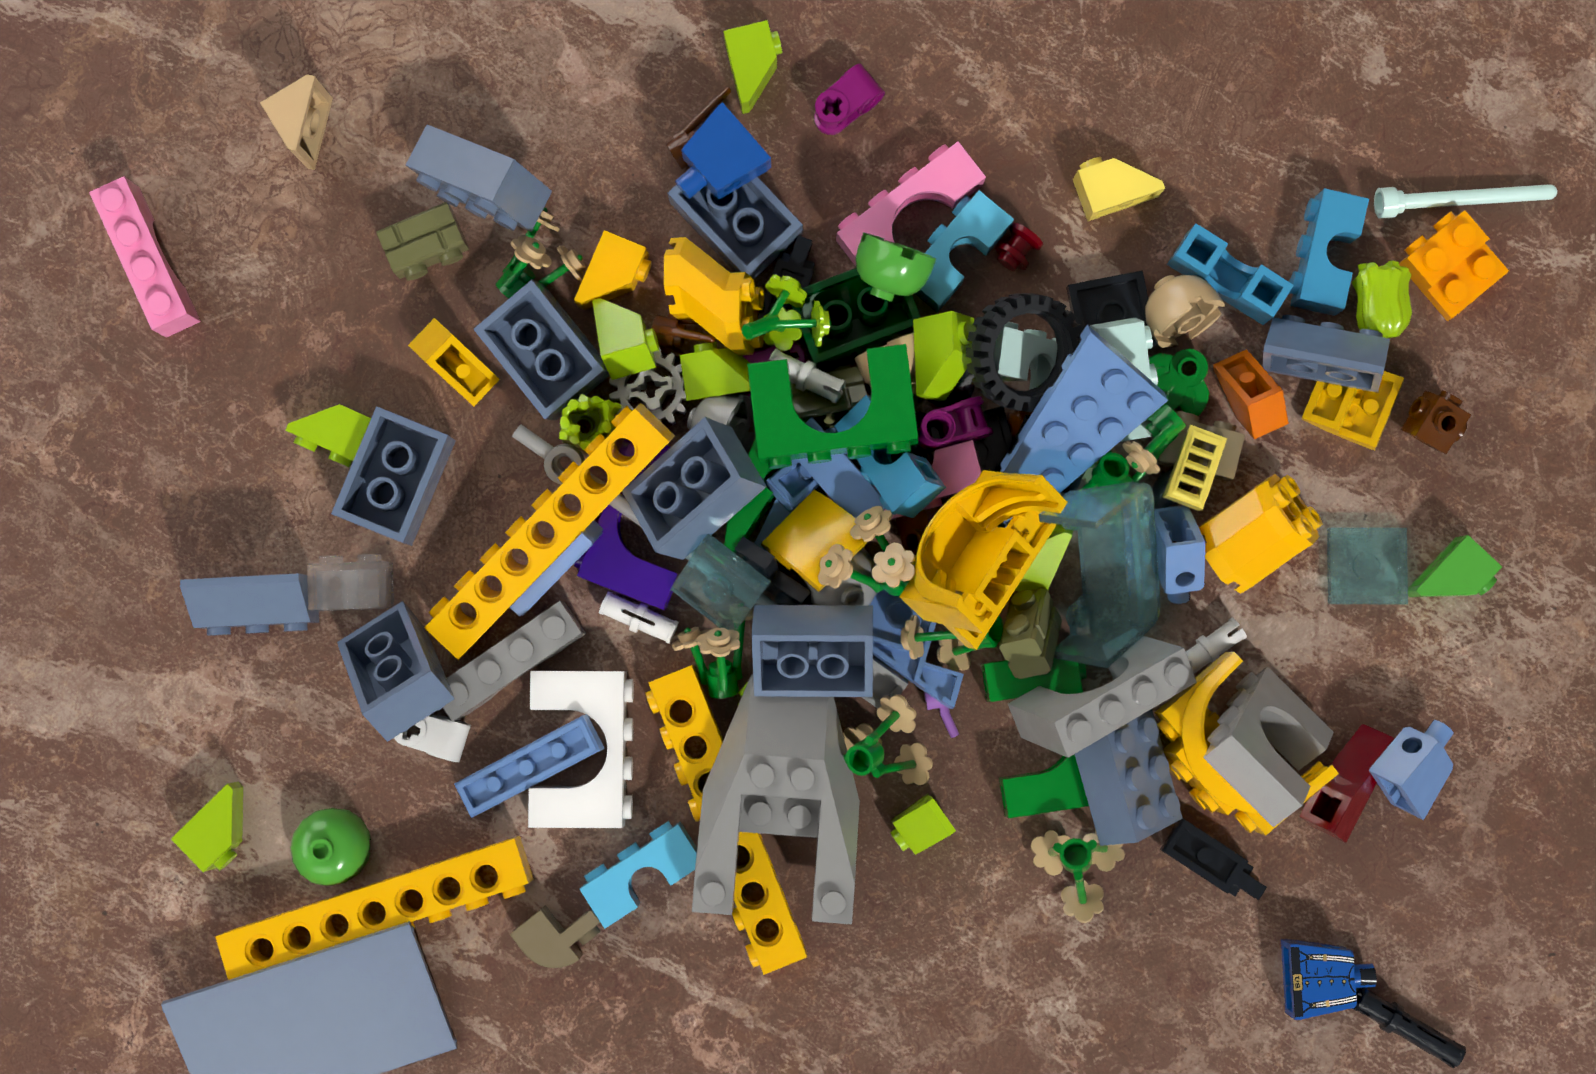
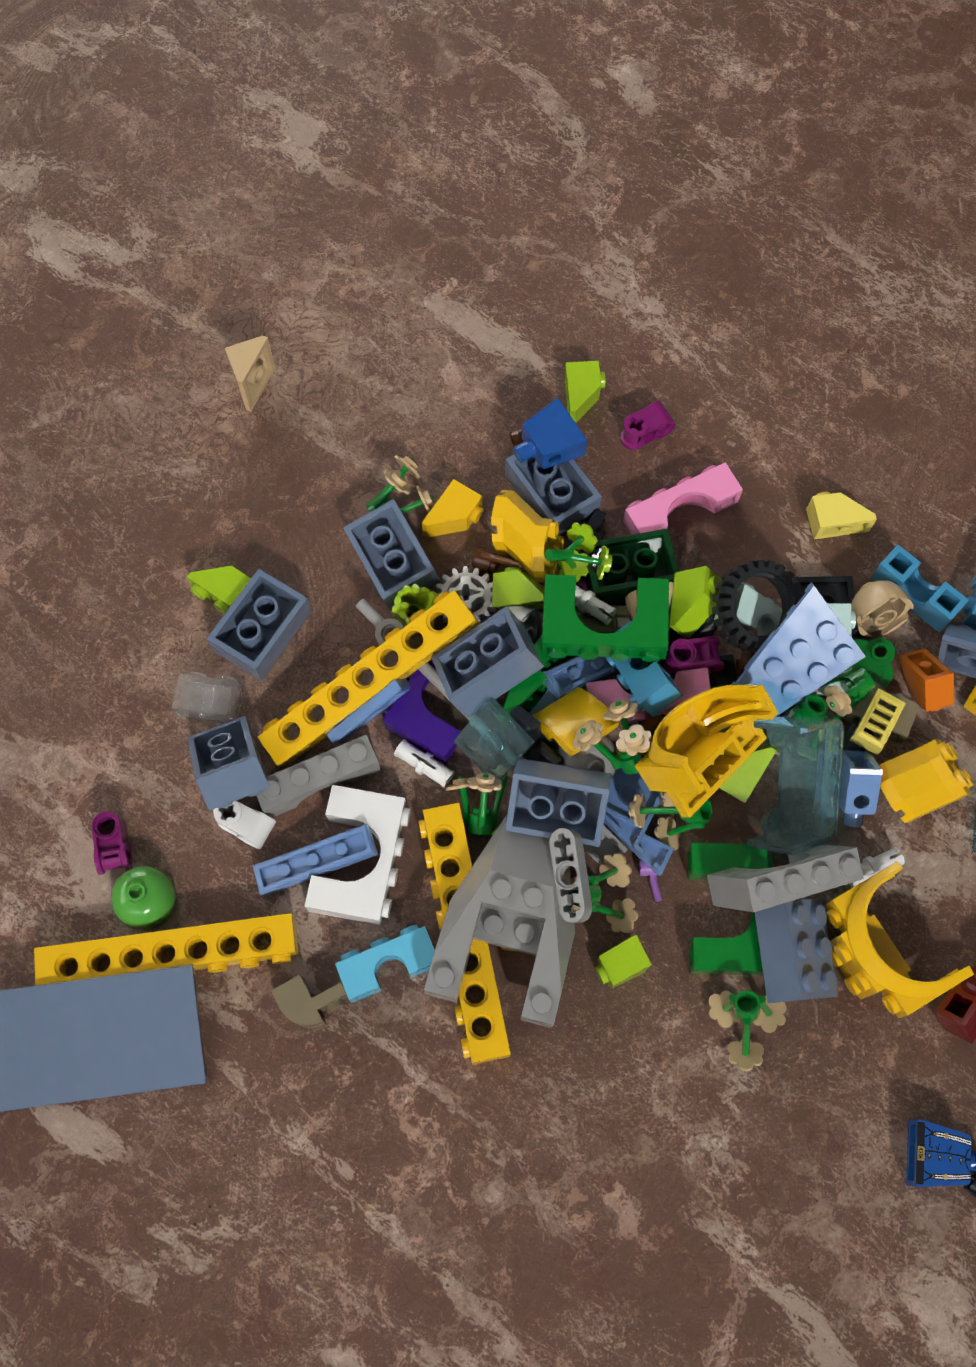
camera: 10 degrees right, 15 degrees down
(150, 275) = (113, 446): bright pink arch -> none
(214, 830) = (56, 865): lime slope -> none
(248, 603) = (127, 695): sand blue slope -> none
(275, 792) = (113, 849): none -> magenta piece
(423, 241) = (319, 468): olive brick -> none
(453, 362) = (323, 554): yellow slope -> none
(478, 178) = (370, 426): sand blue brick -> none
(623, 340) = (454, 555): lime slope -> none
(840, 772) = (581, 884): none -> light grey beam
(842, 481) = (599, 679): medium blue tile -> none
(892, 267) = (665, 531): bright green cylinder -> none
(977, 224) = (730, 524): medium azure arch -> none
(1014, 252) = (756, 548): dark red wheel -> none
(1030, 633) = (732, 822): olive brick -> none
(1211, 860) = (857, 1039): black hinge -> none
(1241, 748) = (916, 942): light grey arch -> none

